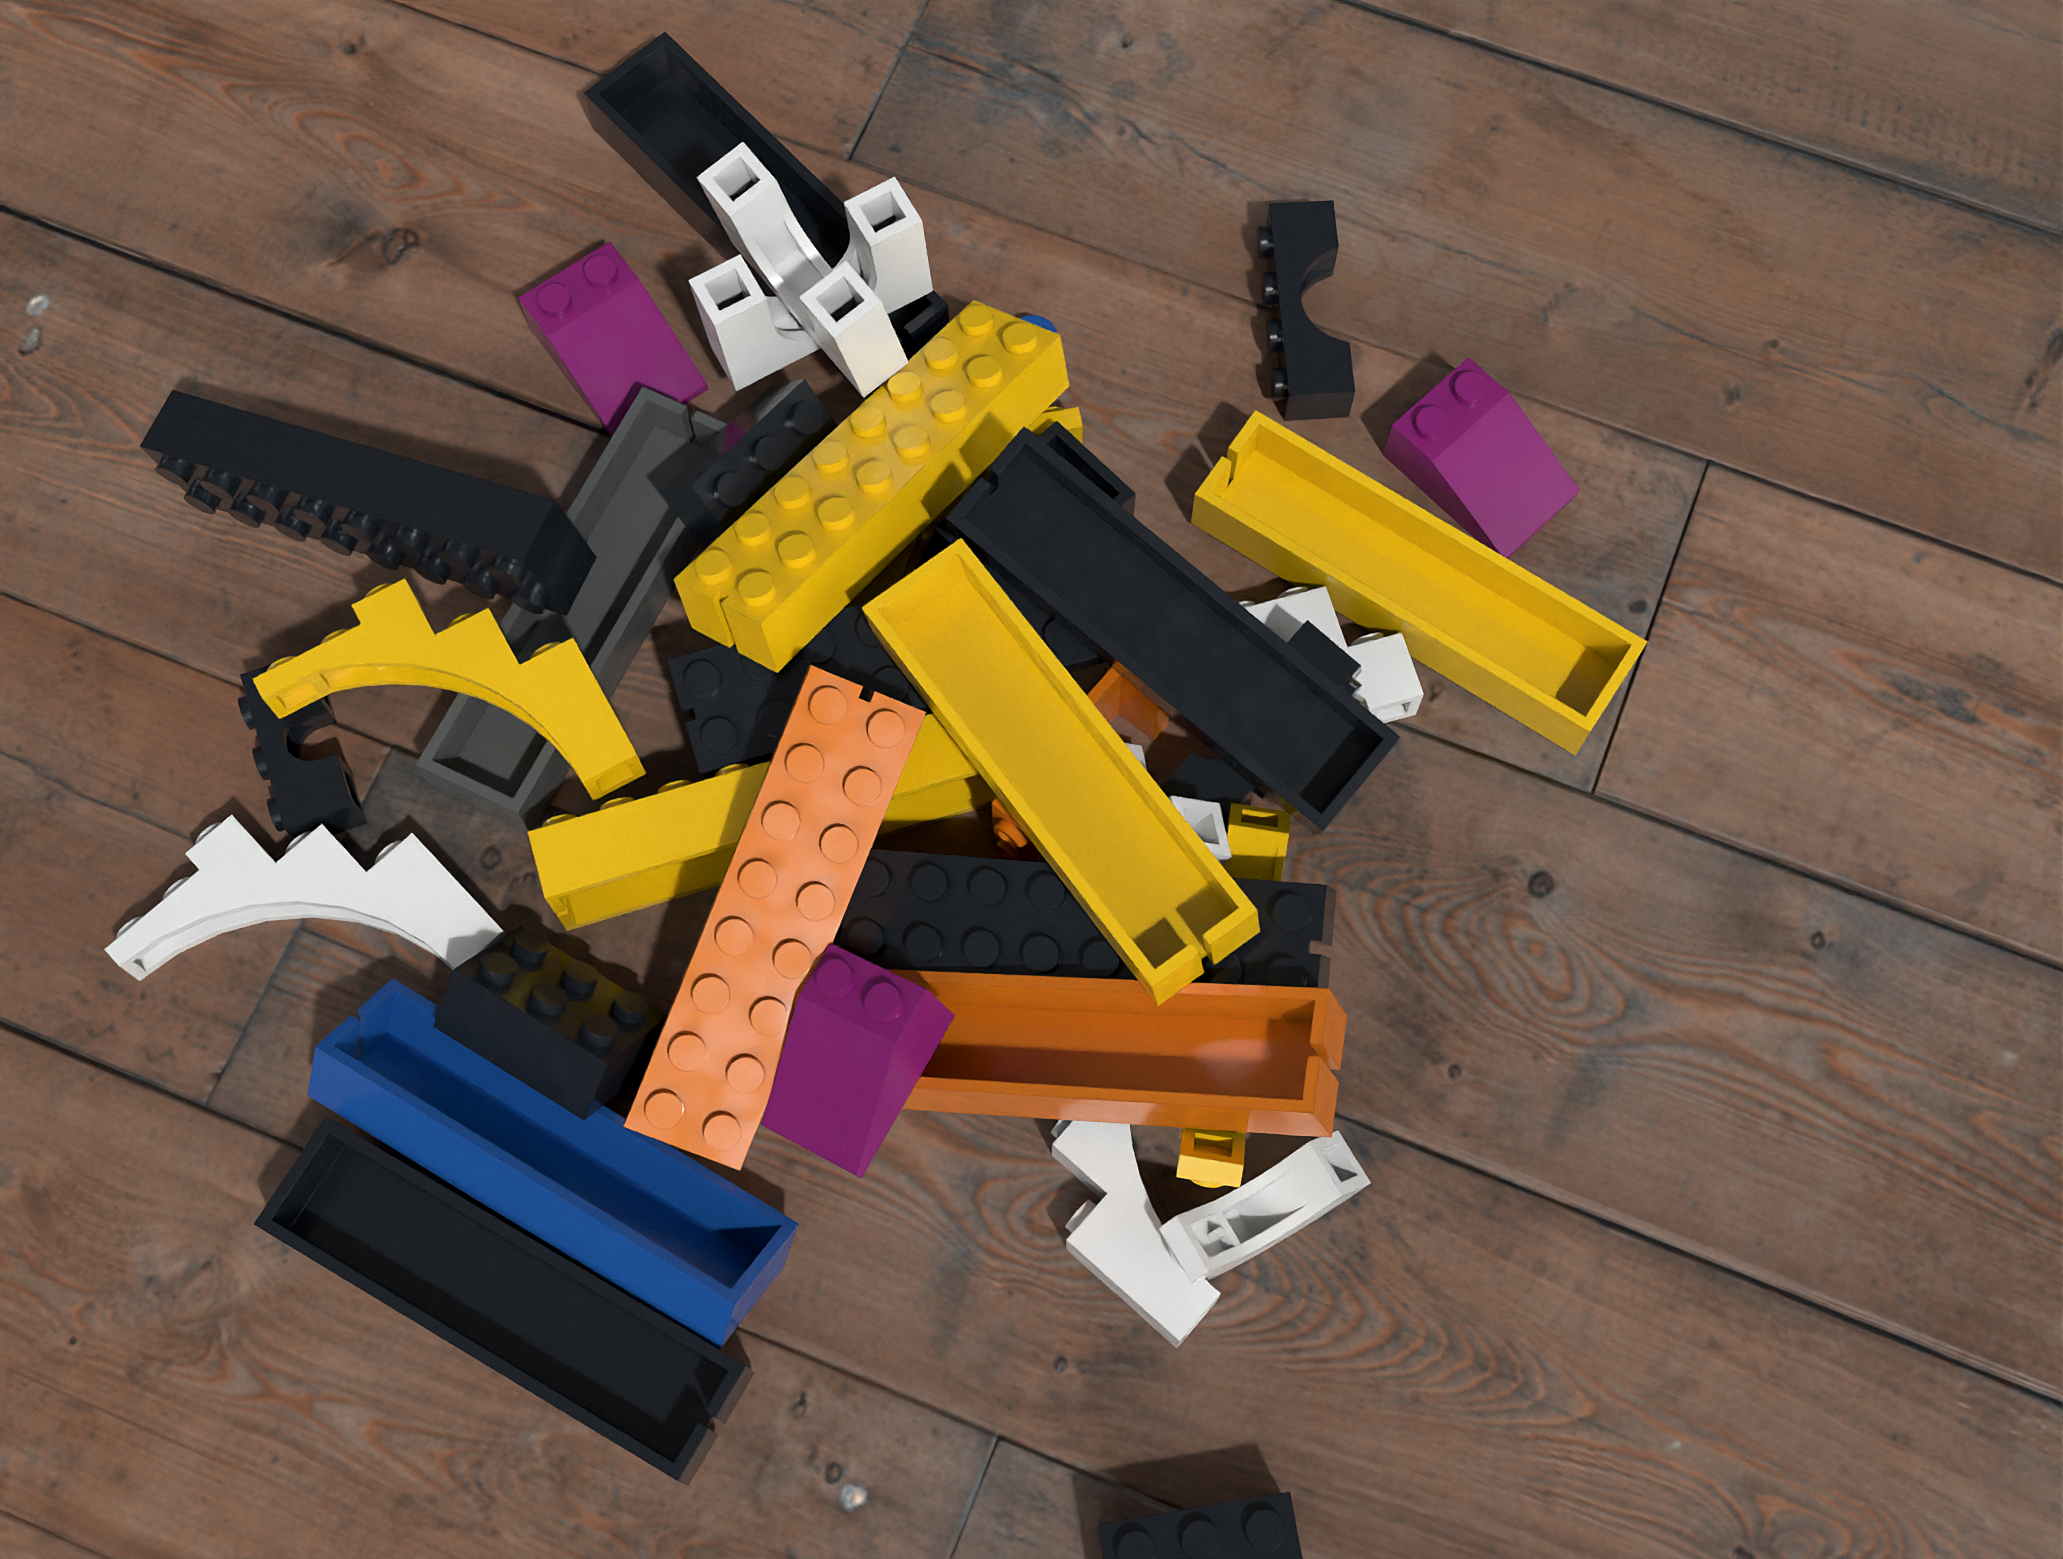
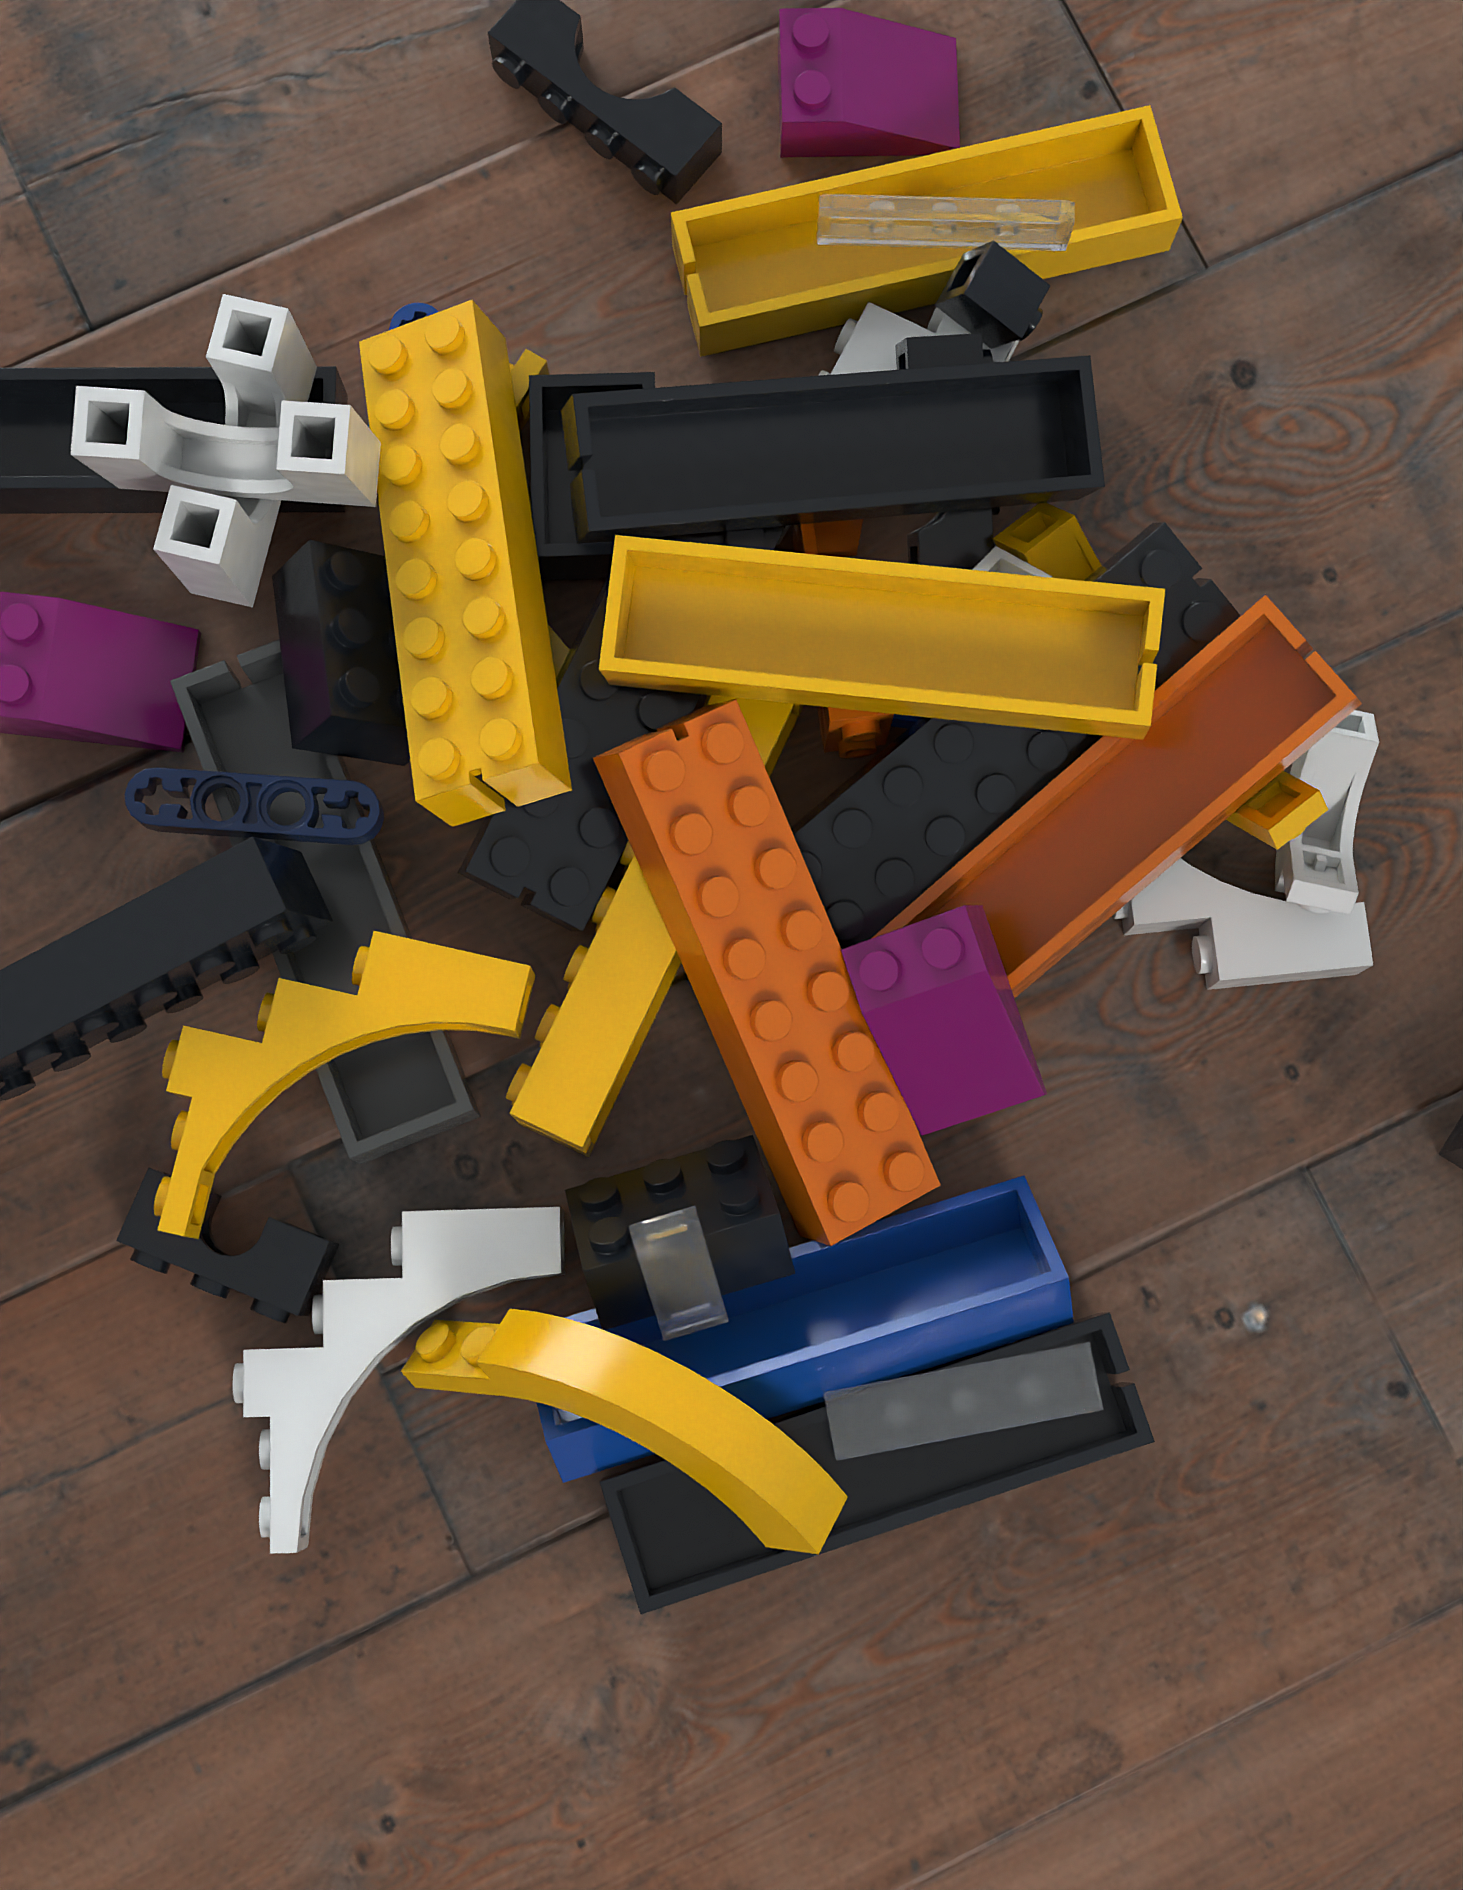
camera: 50 degrees left, 10 degrees up
(395, 1105) = (648, 1400): none -> yellow arch
(507, 1033) = (678, 1273): none -> clear tile
(589, 1314) = (962, 1401): none -> clear tile
(603, 502) = (256, 797): none -> dark blue beam
(1401, 656) = (994, 295): none -> black brick
(1417, 577) = (944, 222): none -> clear tile

